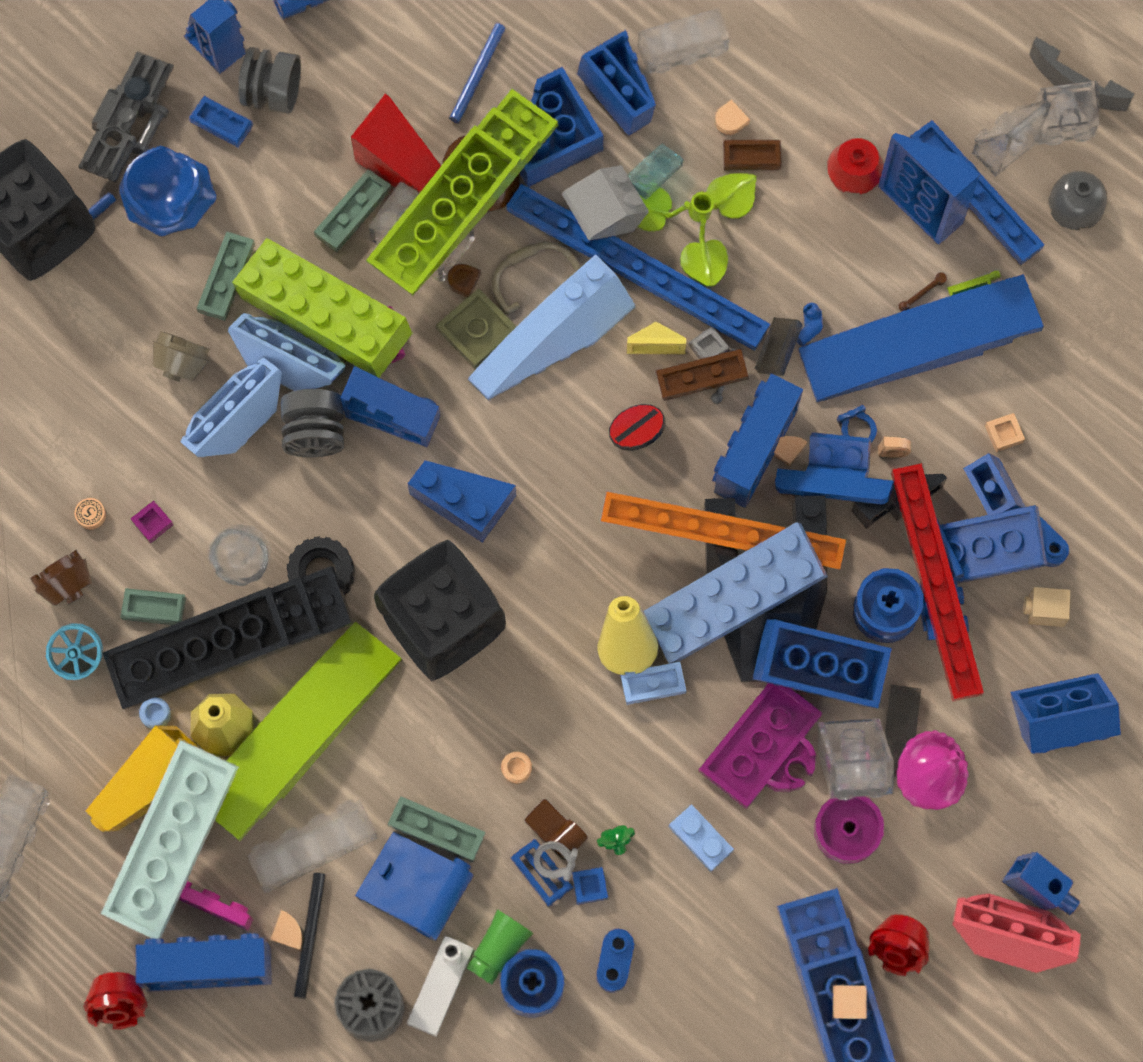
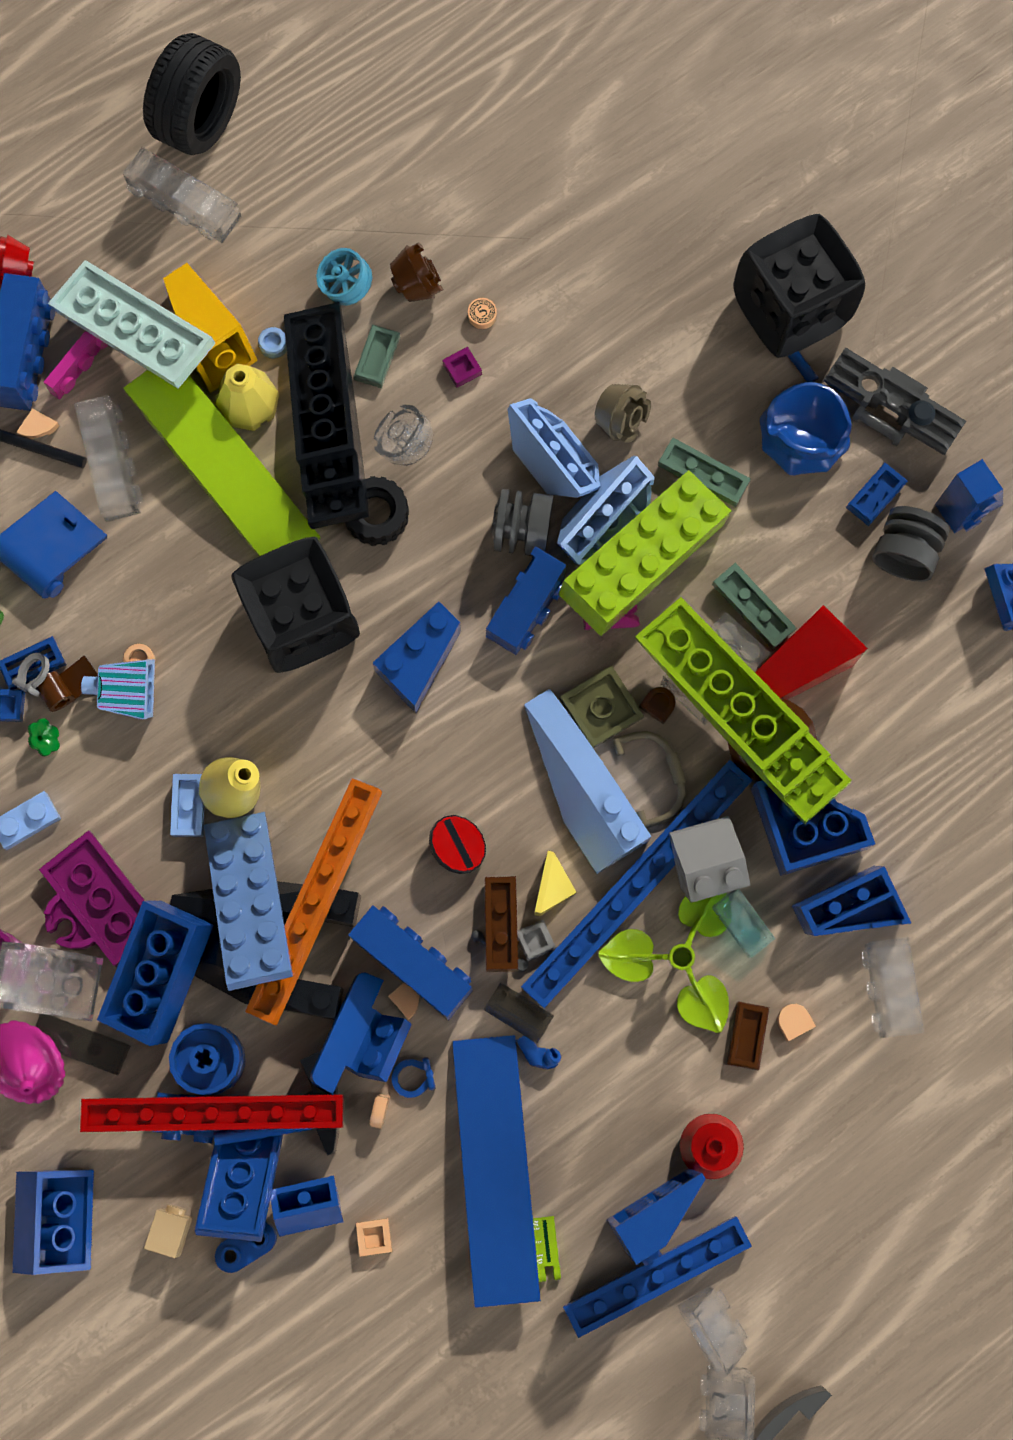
camera: 100 degrees right, 5 degrees up
(436, 829) = (96, 573): sand green plate -> none
(477, 73) = (893, 762): blue bar -> none
(550, 768) = (123, 688): none -> light blue torso
(940, 279) = (564, 1210): reddish brown hinge -> none
(1078, 200) = (627, 1393): dark grey cylinder -> none

